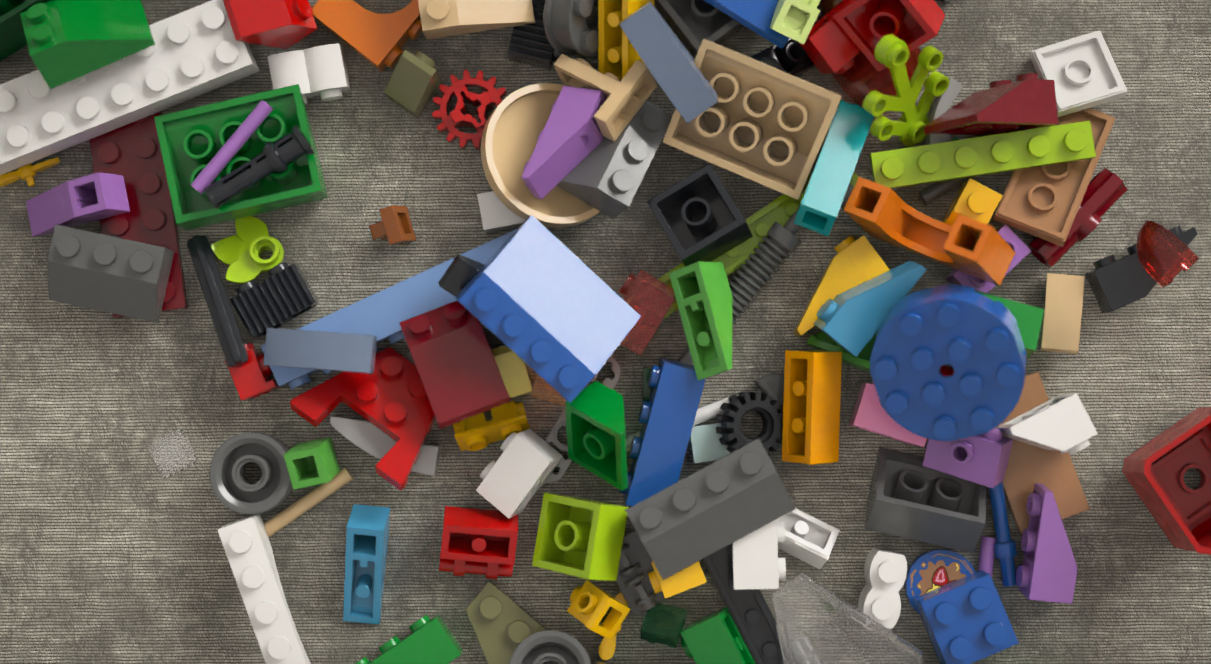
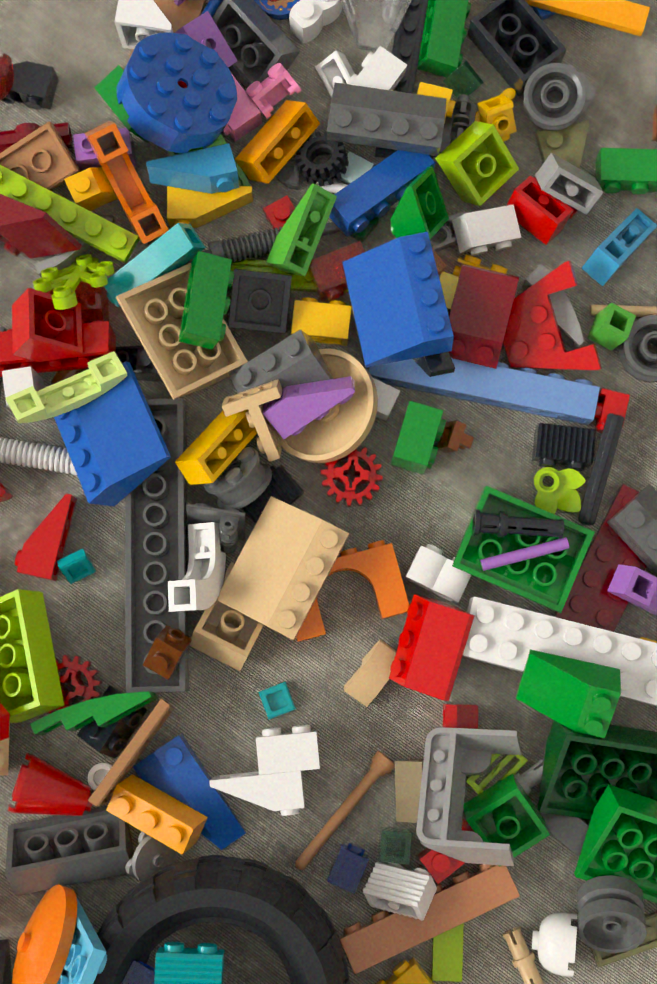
camera: 140 degrees left, 5 degrees down
(320, 350) = (559, 384): sand blue slope -> none
(413, 82) = (376, 516): olive slope -> none
(429, 192) = (417, 436): none -> green brick
(466, 585) = (568, 183): none -> light grey brick
(622, 247) = (322, 321): none -> yellow brick
(669, 62) = (207, 396): sand blue slope -> none
(748, 165) = (206, 300): none -> green brick
(751, 336) = (279, 211): none -> red plate
(862, 459) = (272, 89): none -> bright pink piece
(1062, 313) = (80, 92): tan slope -> none

